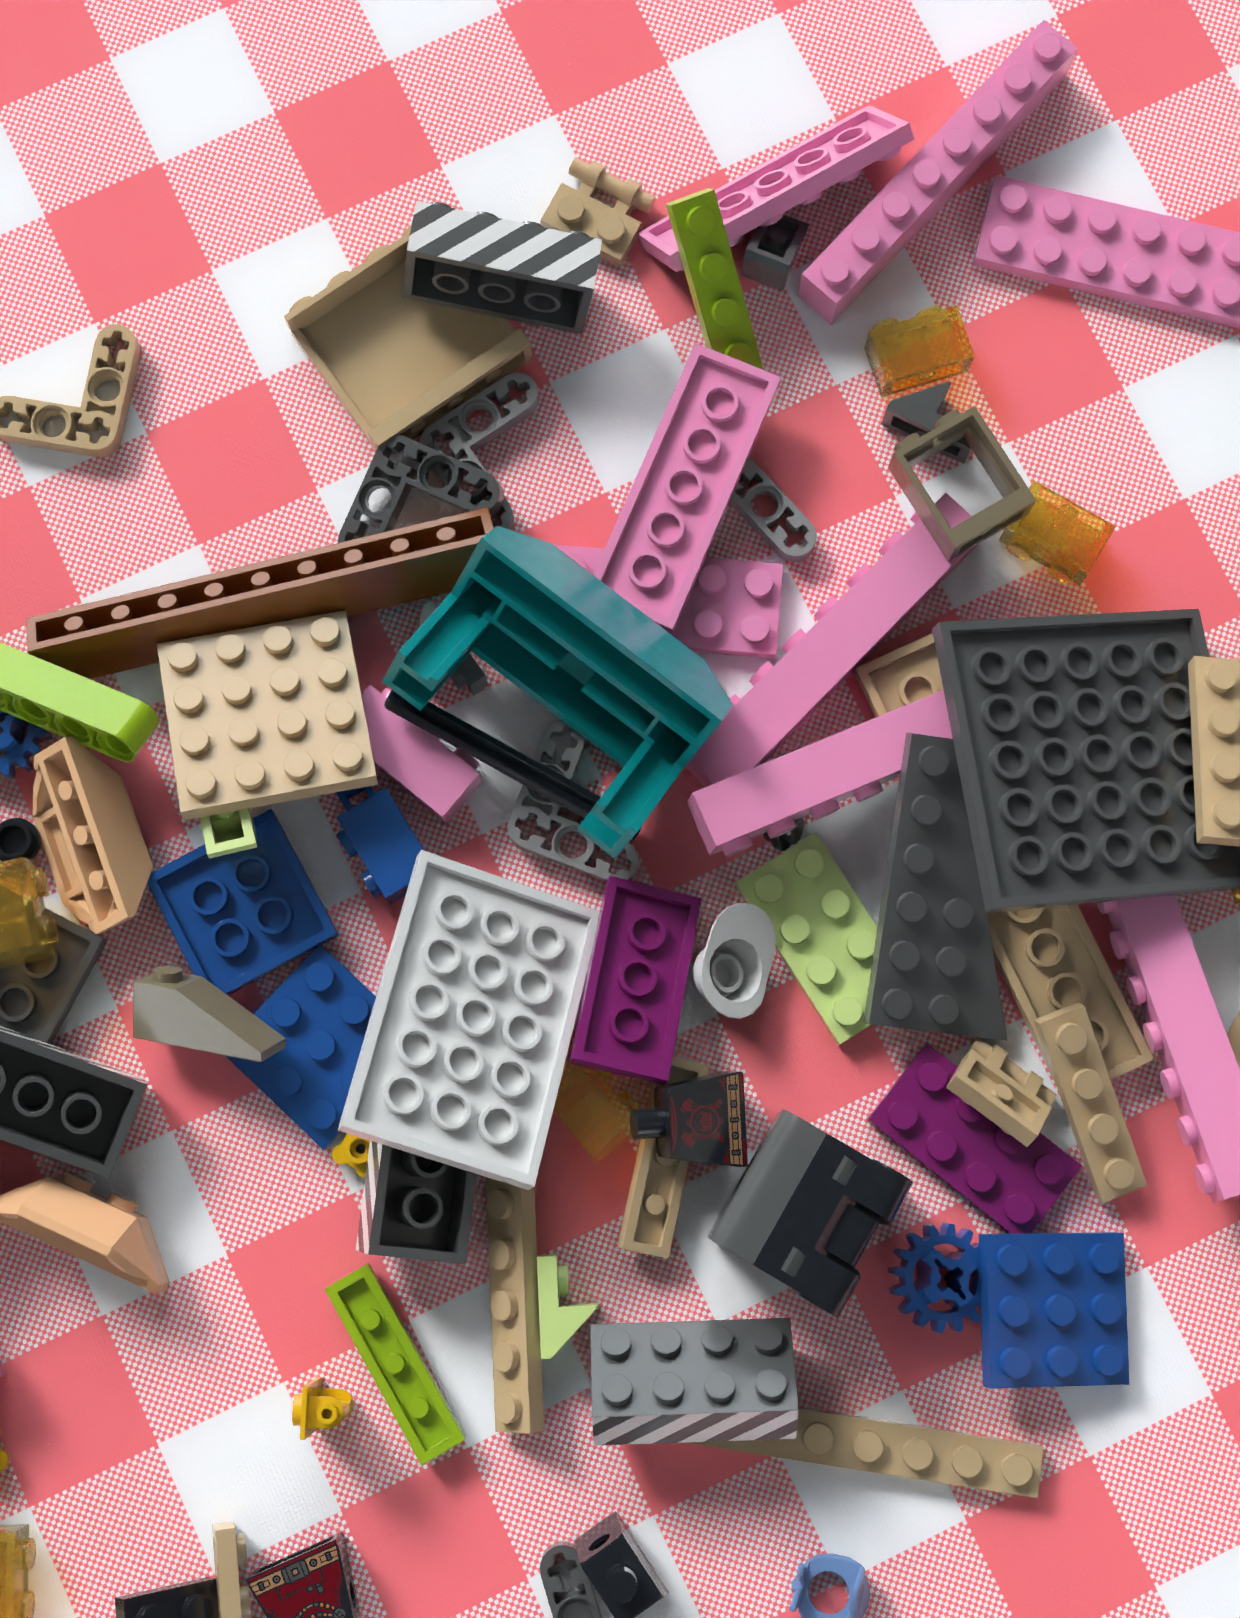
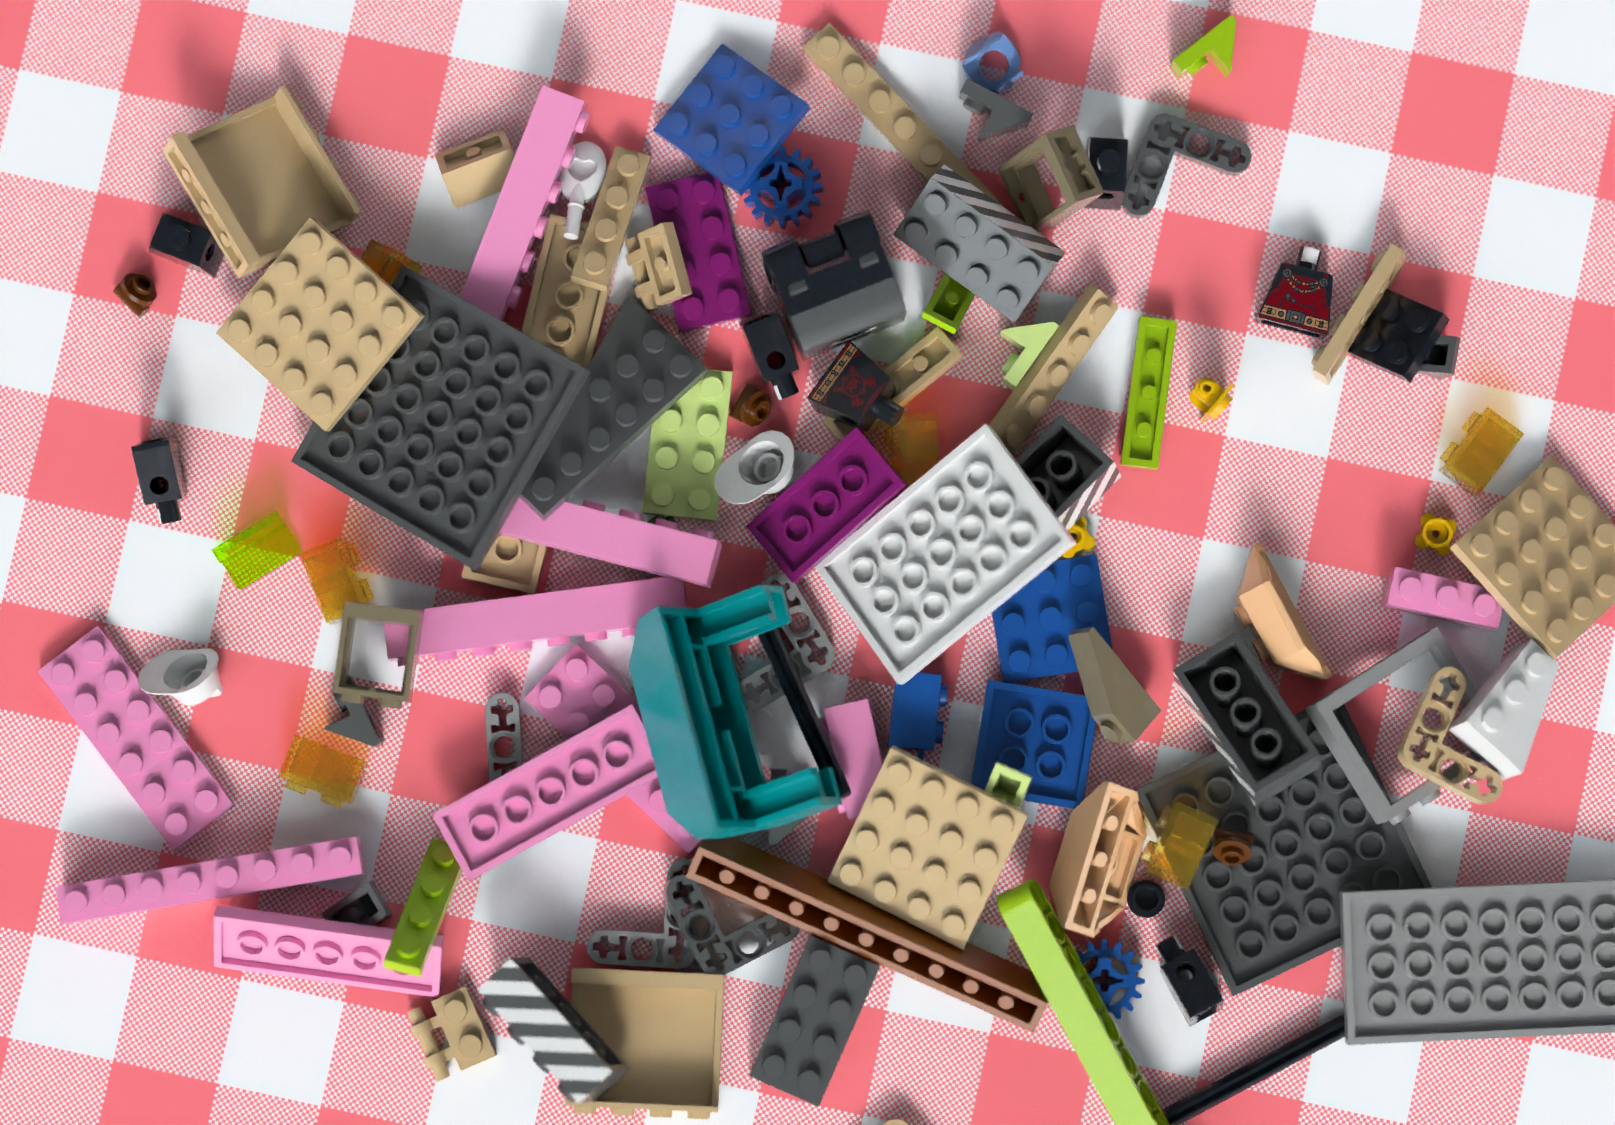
camera: 145 degrees left, 5 degrees up
(255, 468) = (814, 1021): none -> dark grey brick
(657, 1542) = (1070, 168): none -> dark tan window
(674, 1288) = (948, 304): none -> lime slope
(777, 1547) = (1004, 115): none -> dark grey slope
(792, 1025) = (752, 406): none -> reddish brown plate
(834, 1105) = (764, 337): none -> black torso
(1125, 332) = (183, 674): none -> white piece
(1149, 1117) = (582, 183): none -> white piece
(1154, 507) = (257, 550): none -> clear neon green panel

